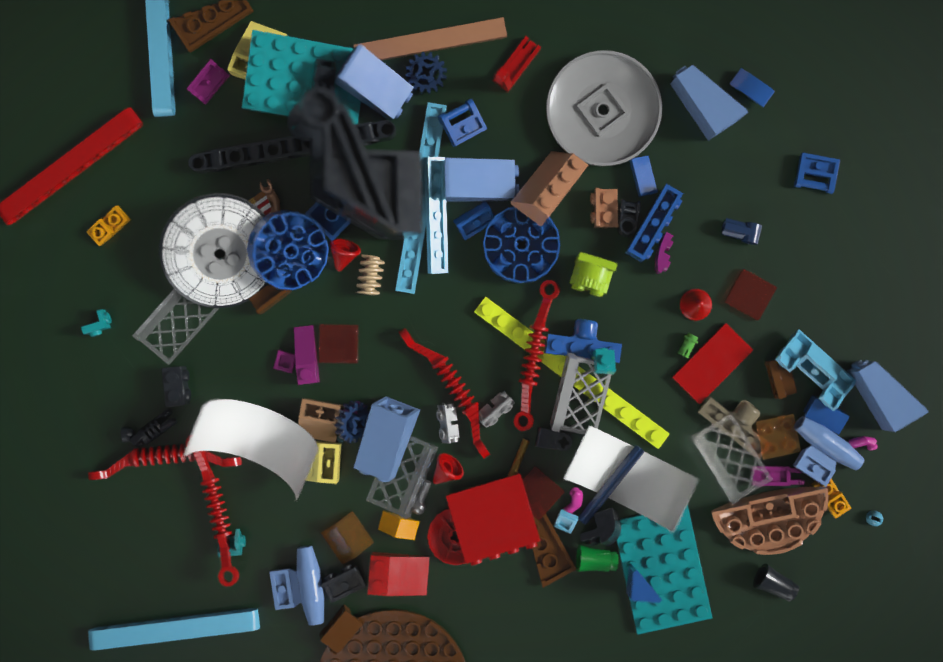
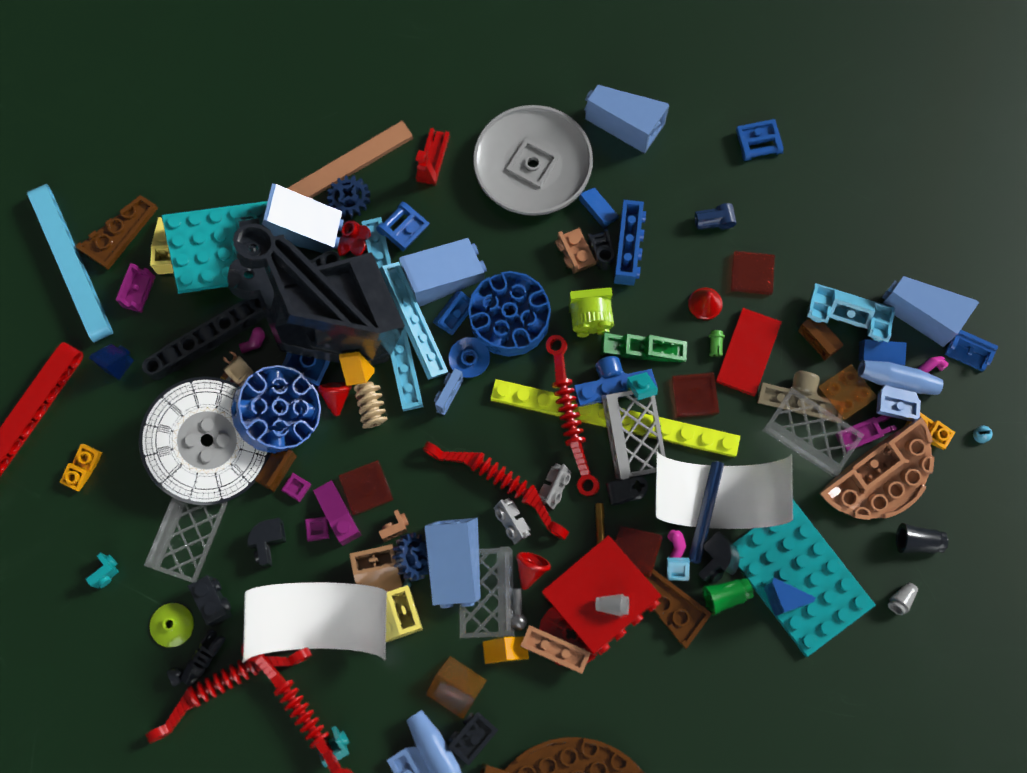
camera: 25 degrees left, 15 degrees down
(147, 386) = (182, 625): none -> lime dish
(166, 142) = (113, 360): none -> clear blue slope
(239, 350) = (265, 534): none -> black brick
(268, 200) = (238, 370): none -> tan tile
(281, 319) = (296, 487): none -> magenta tile
(294, 174) = (255, 340): none -> dark pink arm
(345, 390) = (394, 530): none -> nougat bracket
(369, 242) = (355, 368): none -> light orange slope
(398, 574) = (527, 702): red slope -> none
(413, 116) = (353, 238): none -> red plate
(434, 296) = (452, 384): none -> medium blue plate
(437, 545) = (555, 649): none -> nougat plate
(461, 264) = (469, 347): none -> blue dish
(497, 533) = (613, 604): none -> light grey cone
(549, 185) = (512, 247): nougat slope -> none
(624, 322) = (644, 348): none -> green slope
(649, 381) = (695, 395): none -> clear red tile
(662, 258) = (651, 269): magenta slope -> none
(737, 623) = (903, 599): none -> light grey cone
(752, 87) = (662, 89): blue slope -> none
(903, 446) = (971, 350): none -> blue hinge

